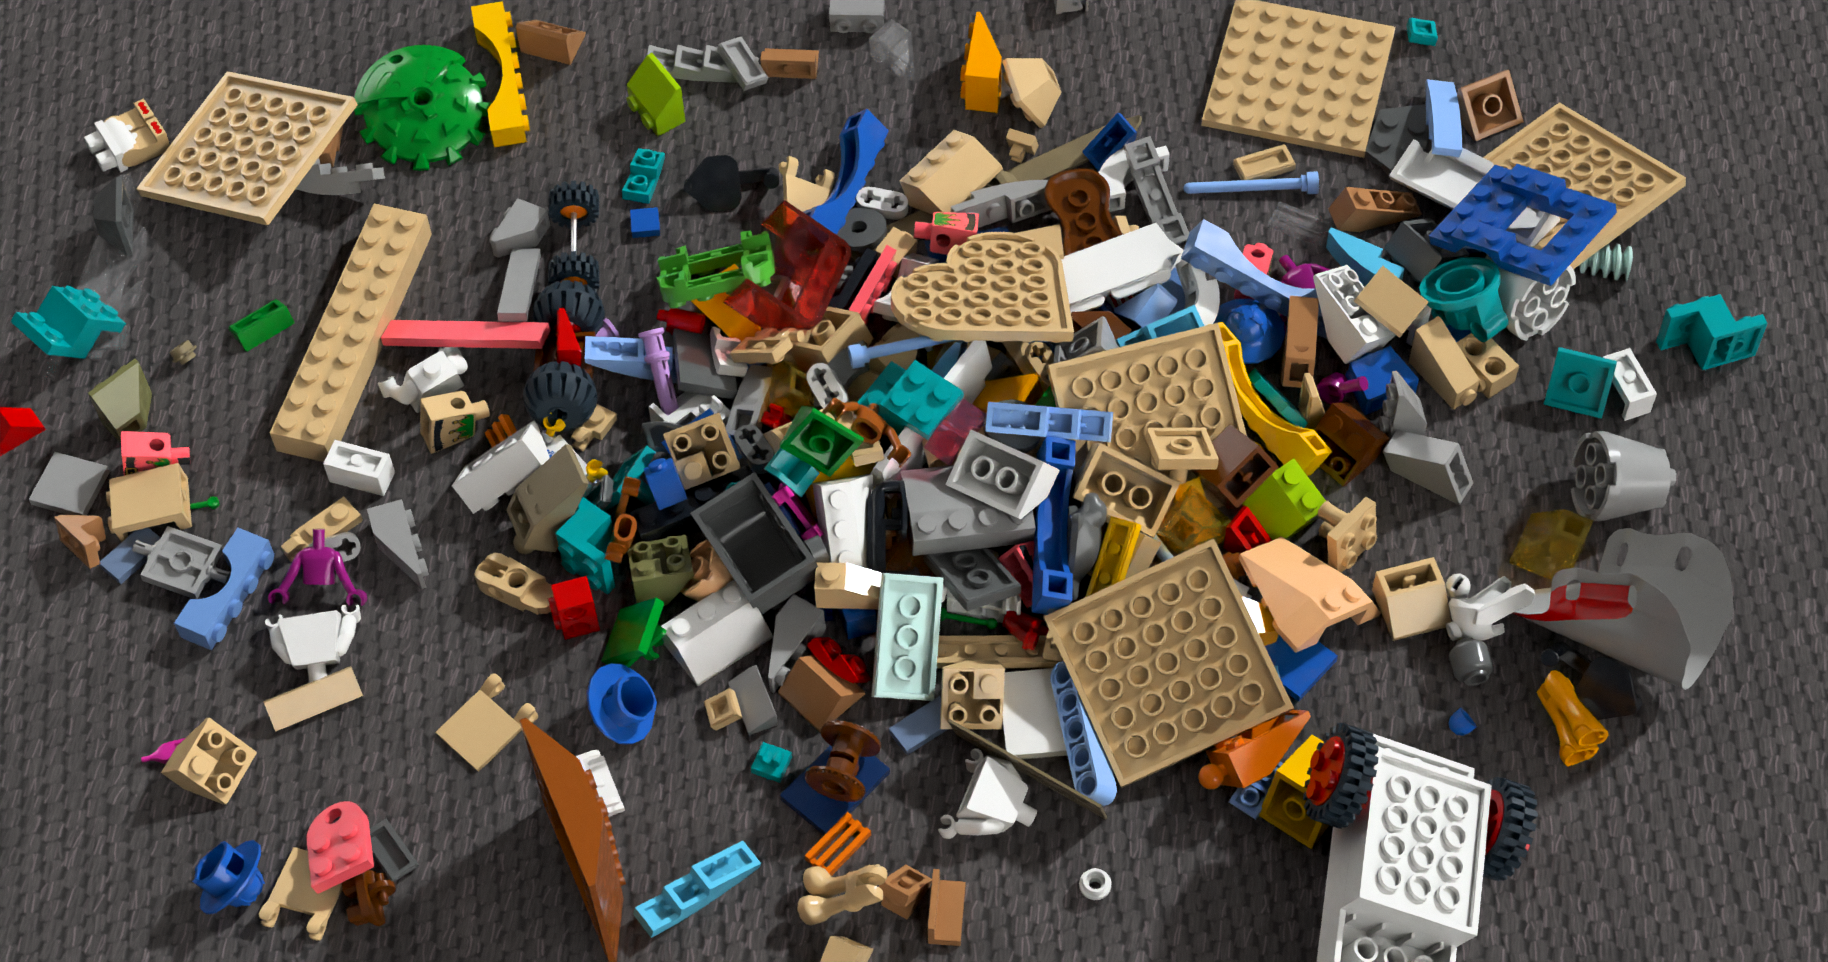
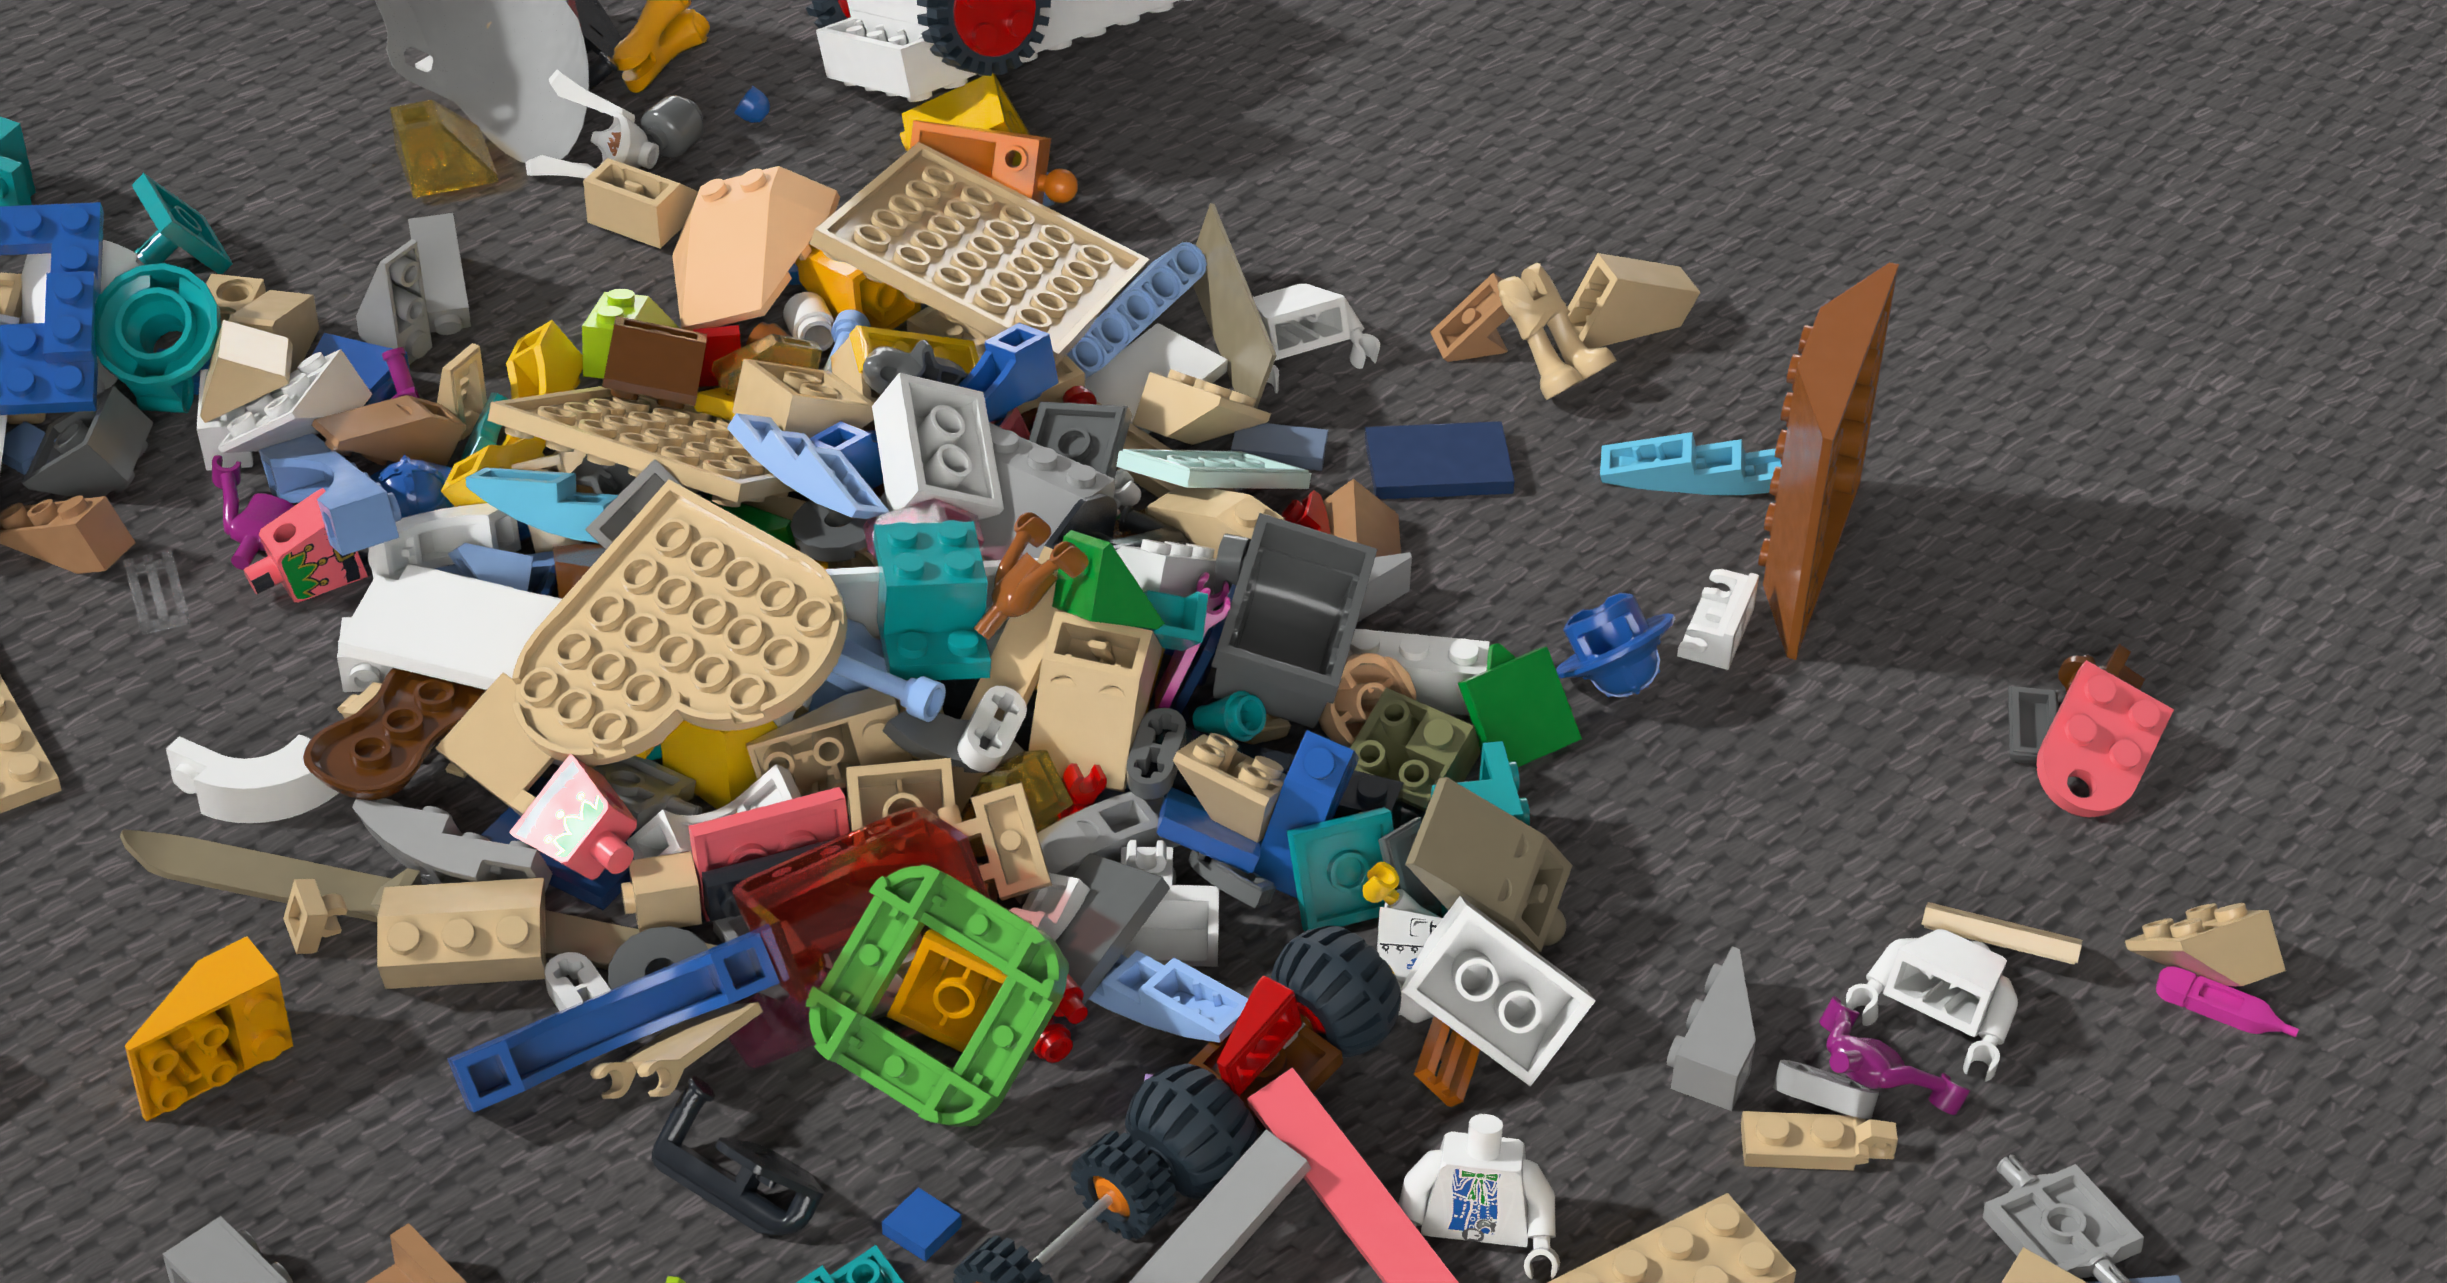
camera: 140 degrees left, 15 degrees down
(207, 619) = (2080, 1122): medium blue arch -> none
(229, 876) = (2272, 788): blue helmet -> none
(295, 893) = (2185, 761): tan flag -> none
(359, 468) = (1695, 1150): white panel -> none
(449, 419) = (1522, 1102): tan torso -> none
(482, 727) = (1792, 773): tan flag -> none
(532, 594) = (1612, 881): tan piece -> none
(573, 608) = (1569, 772): red brick -> none
(625, 524) = (1425, 771): dark orange piece -> none
(657, 358) = (1151, 947): lavender pin -> none
(723, 709) = (1489, 593): tan tile -> none
(753, 701) = (1442, 582): light grey slope -> none
(771, 762) = (1486, 519): teal tile -> none
(838, 776) = (1404, 428): reddish brown hose -> none
(864, 834) = (1516, 409): orange tile -> none
(894, 48) = (263, 1177): clear slope -> none
(946, 911) = (1441, 297): medium nougat panel -> none
(1033, 87) = (190, 937): tan slope -> none
(1095, 875) = (1273, 223): white plate -> none
(1109, 140) = (210, 817): blue slope -> none
(1153, 190) = (290, 707): light grey slope -> none
(1181, 450) = (696, 378): tan tile -> none
(1265, 163) = (77, 682): tan tile -> none
(1307, 183) = (75, 617): light blue piece -> none
(1348, 532) = (623, 259): tan plate -> none
(1352, 439) = (481, 324): reddish brown slope -> none
(1359, 256) = (170, 486): medium azure slope -> none
(1463, 589) = (573, 196): white hinge -> none
(1619, 476) = (307, 126): light grey cone -> none
(1632, 385) = (122, 205): white panel -> none

